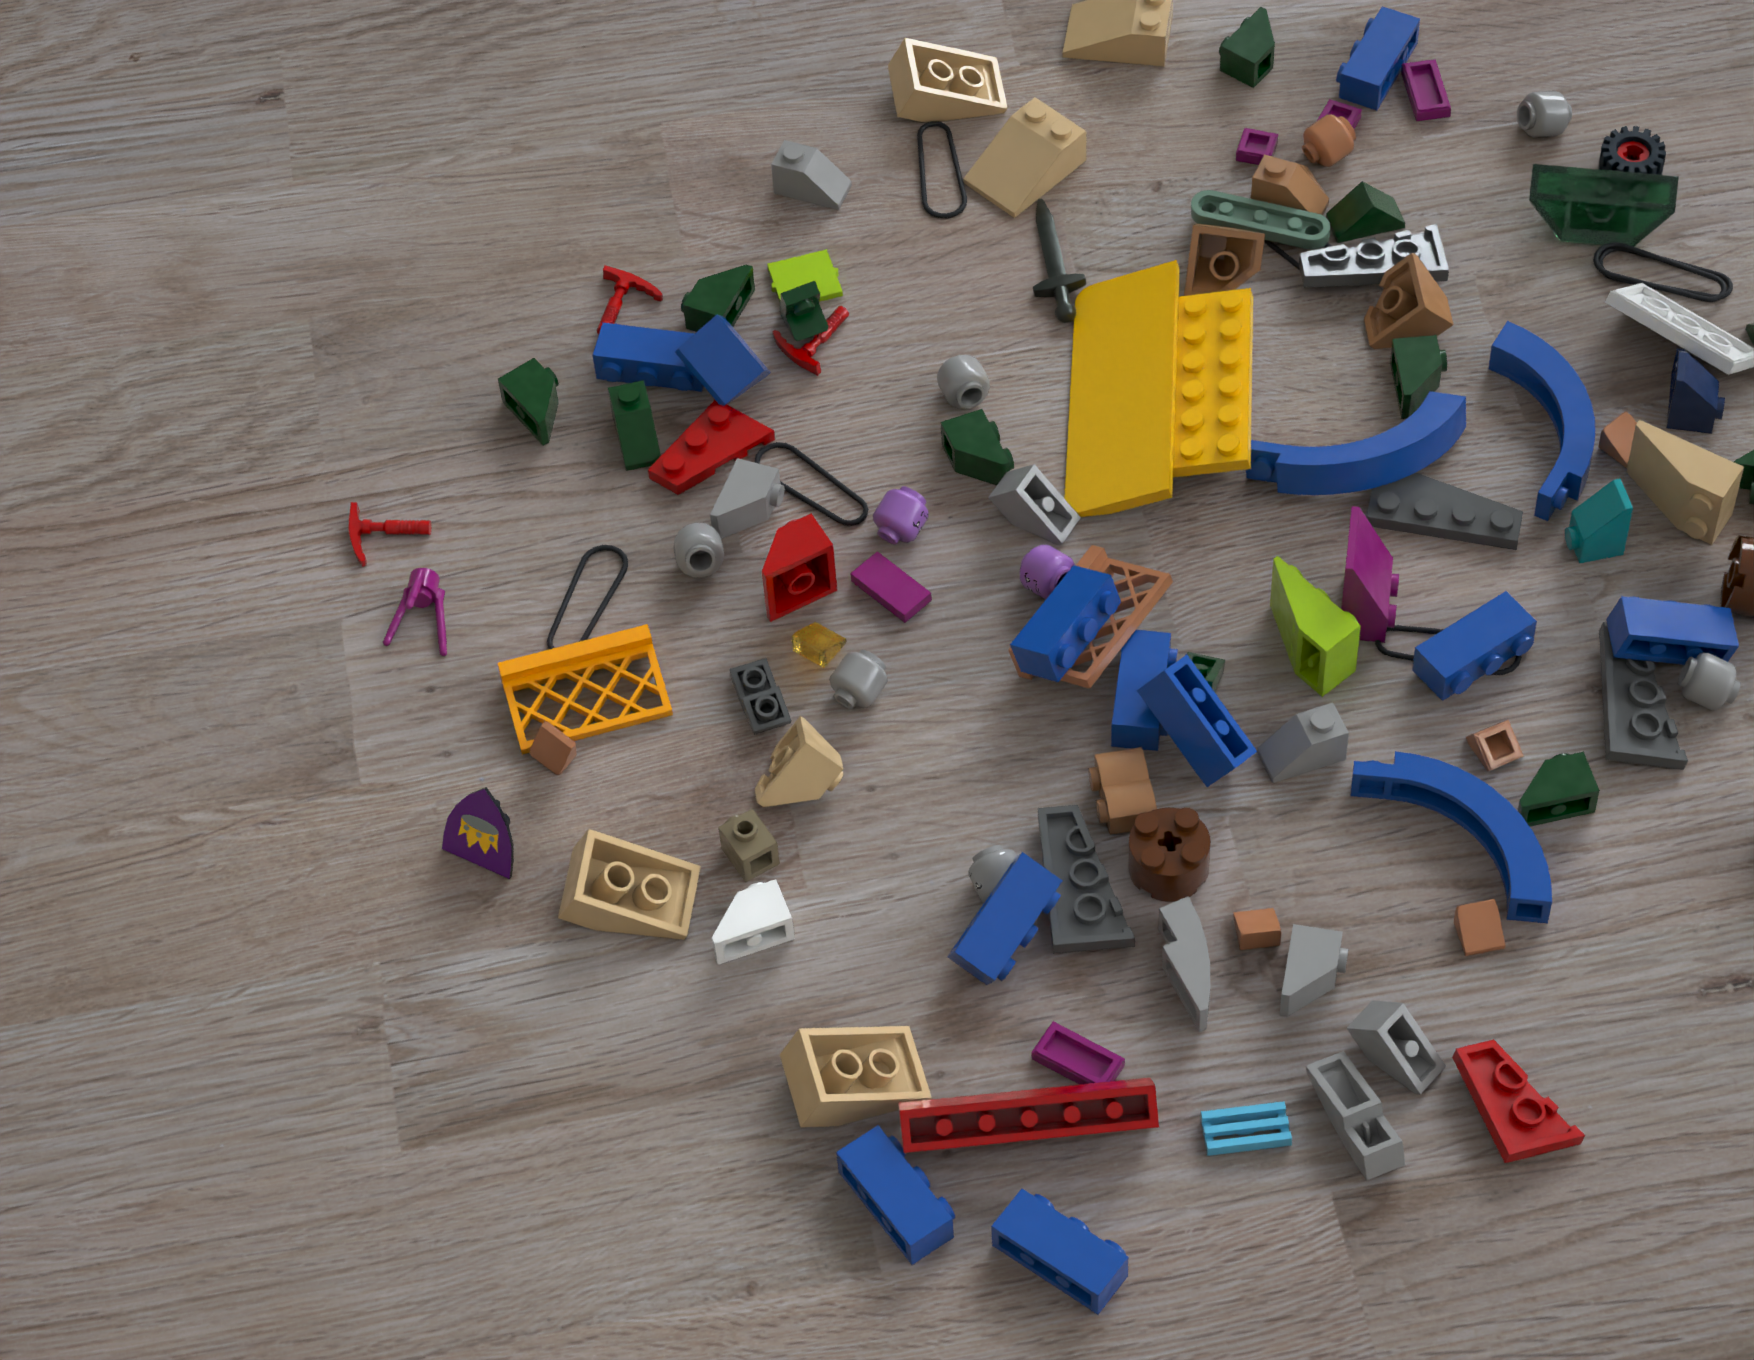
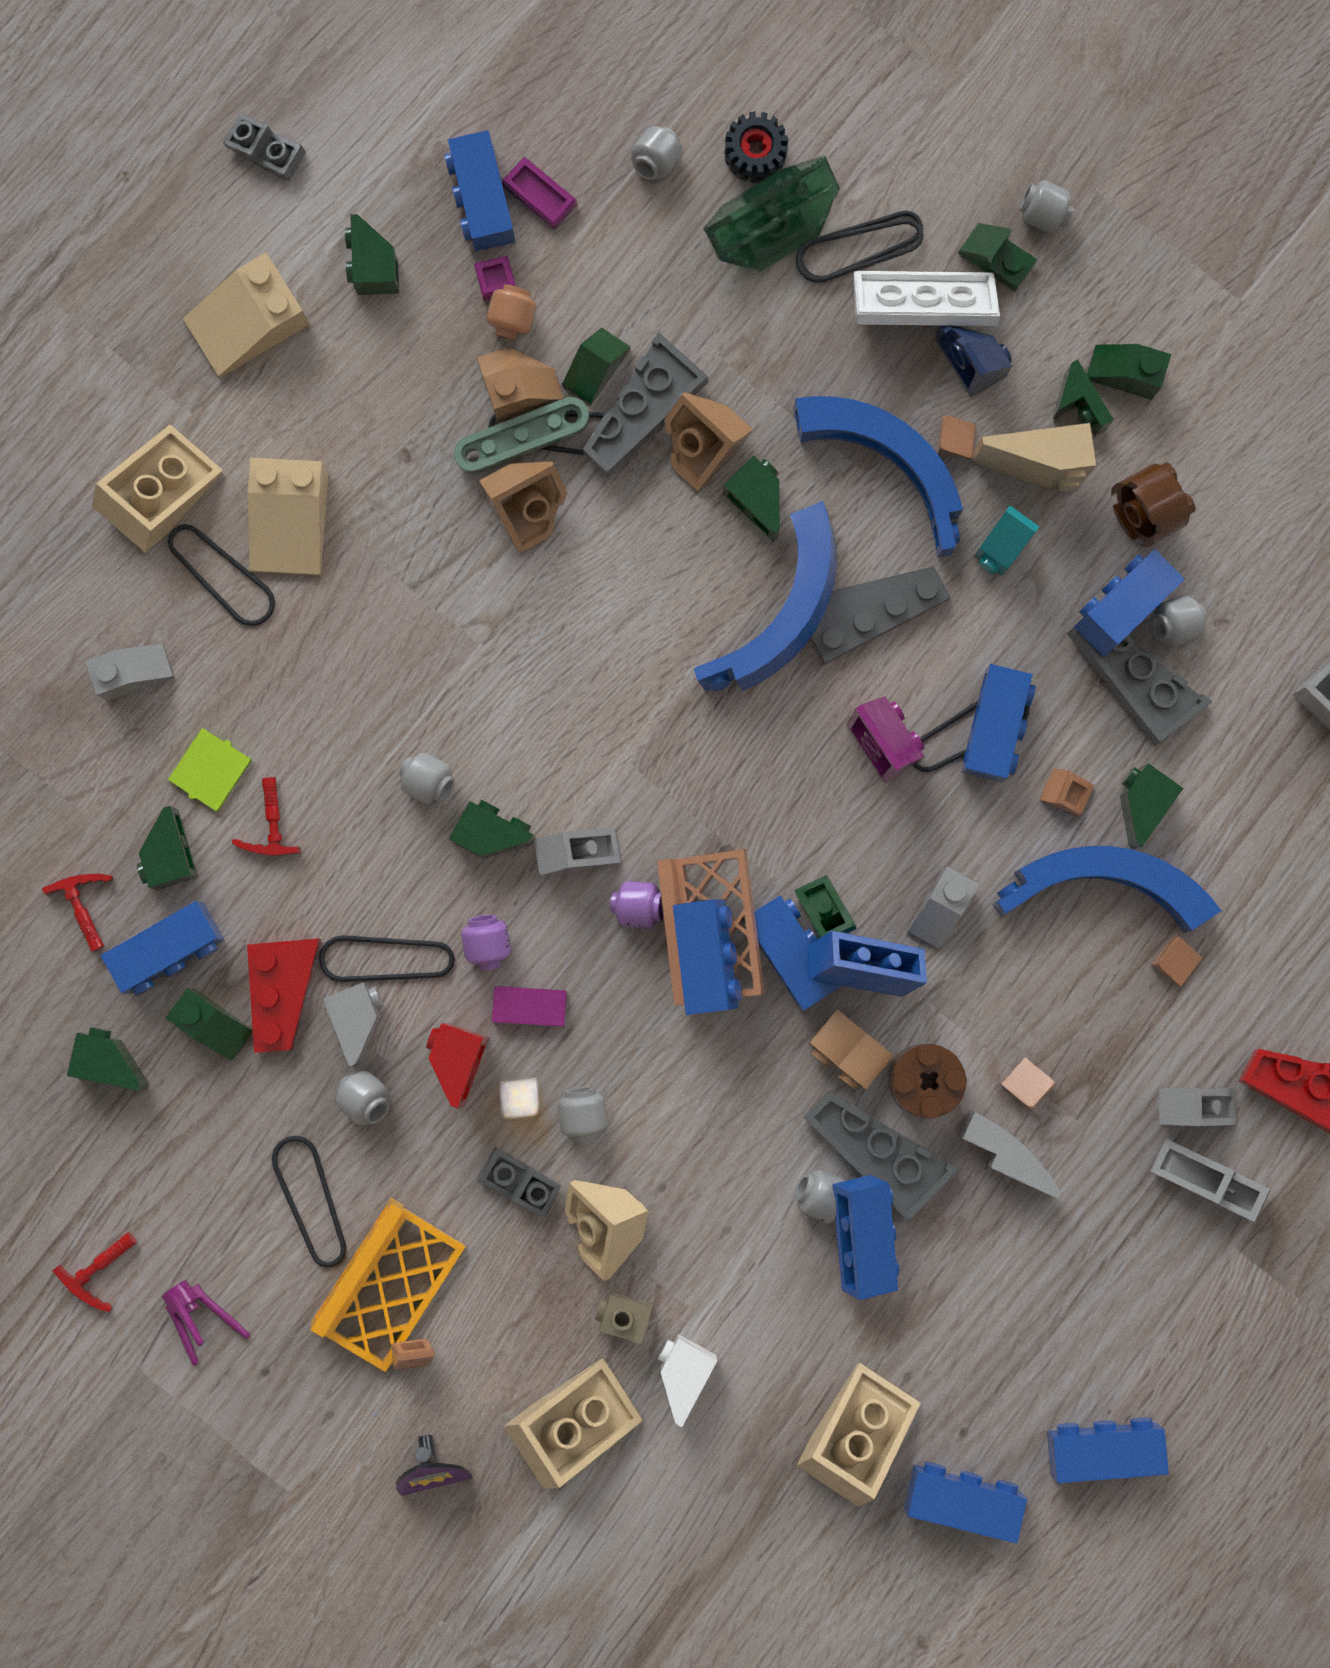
camera: 45 degrees left, 30 degrees up
(722, 360) = (229, 913): blue slope -> none
(802, 311) = (247, 814): dark green slope -> none
(1028, 1115) = (1006, 1375): red brick -> none
(1059, 283) = (414, 618): pearl dark grey sword -> none
(1076, 1056) = (992, 1289): magenta tile -> none
(1155, 389) = (579, 670): yellow slope -> none
(1245, 1121) = (1156, 1260): medium azure tile -> none
(1256, 144) = (454, 356): magenta tile -> none
(1311, 966) = (1093, 1091): light grey slope -> none
(1315, 631) = (883, 813): lime slope -> none

